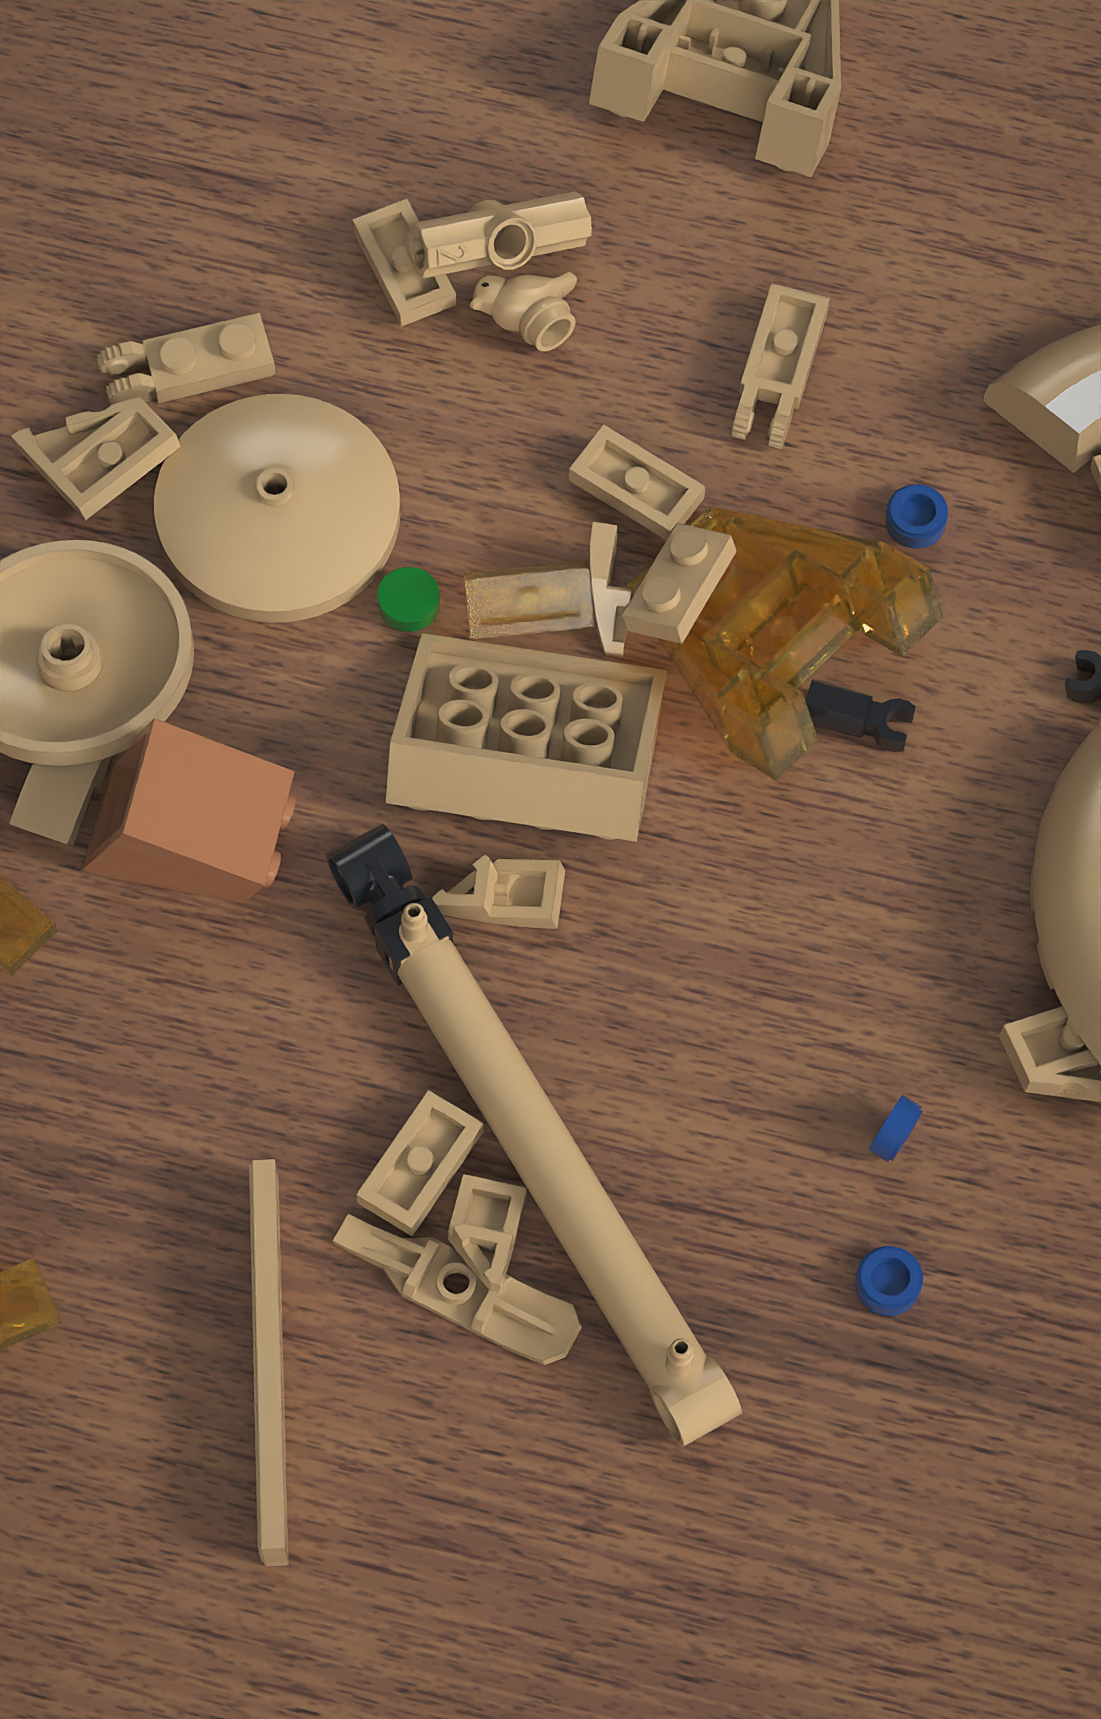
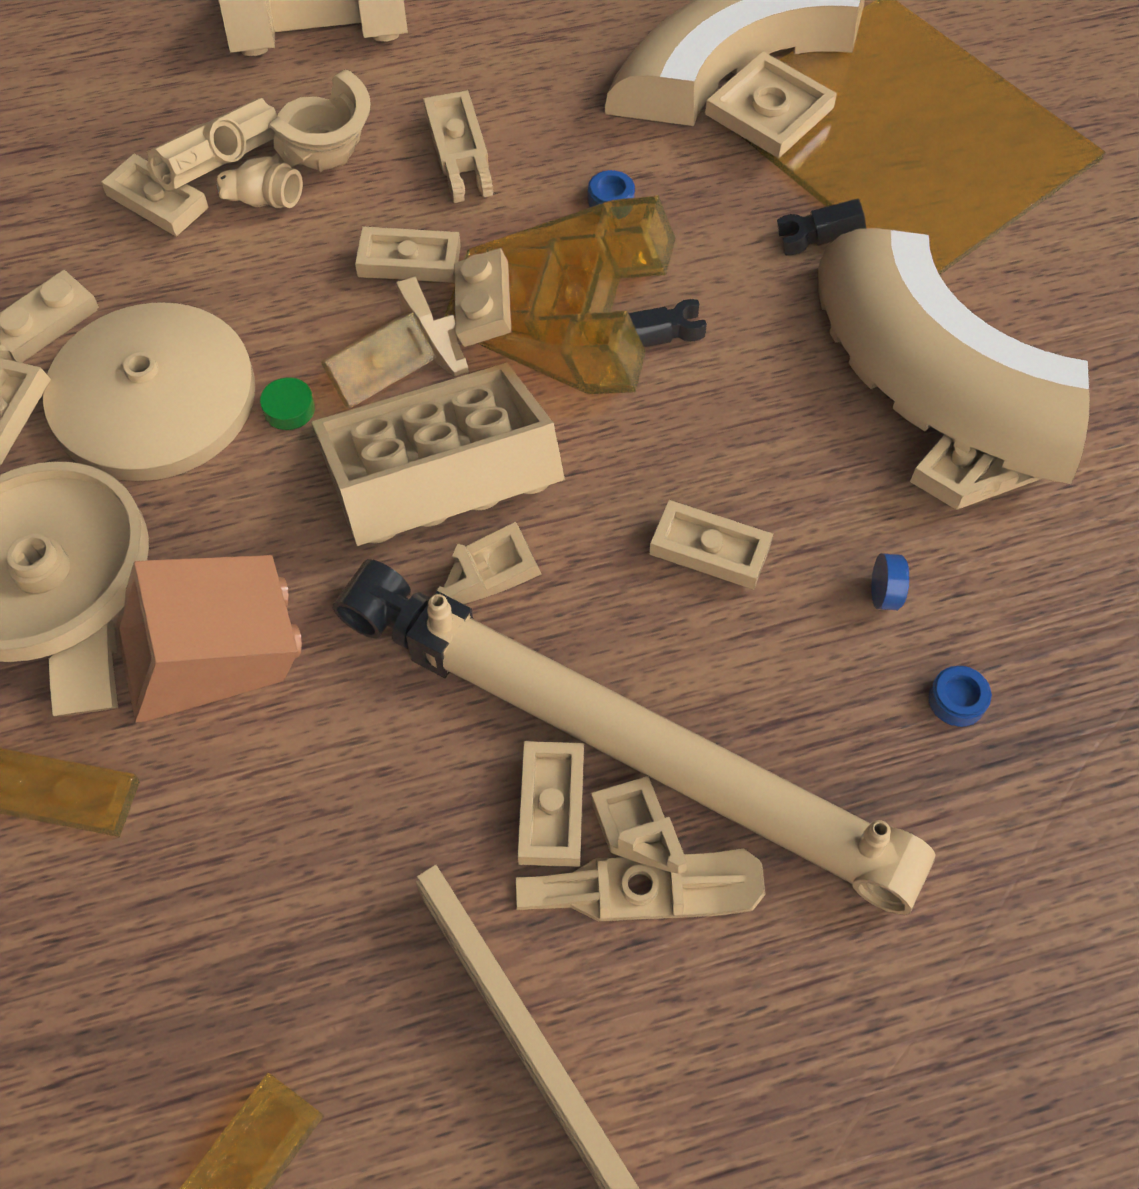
camera: 30 degrees left, 5 degrees down
(627, 271) = (323, 130): none -> tan helmet
(743, 991) = (711, 544): none -> tan plate

